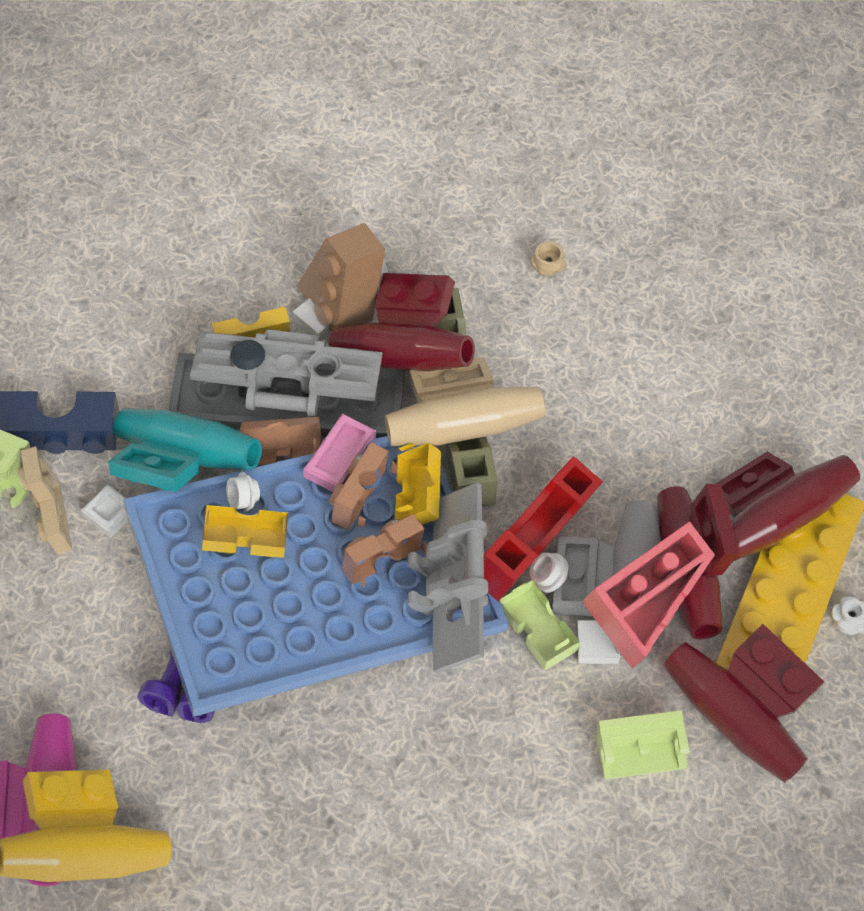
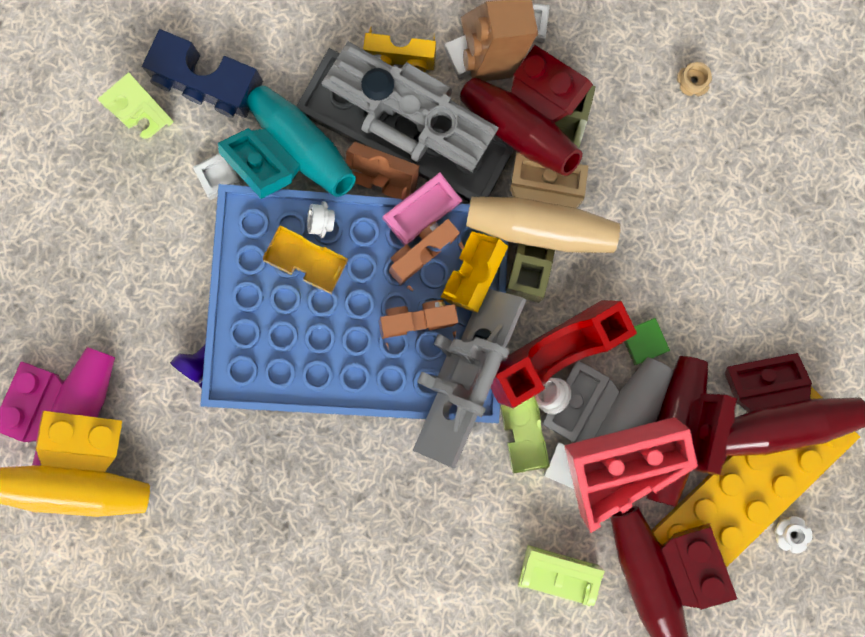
camera: 30 degrees right, 25 degrees up
(47, 496) = (168, 143): tan plate -> none
(613, 497) = (647, 342): none -> bright green tile

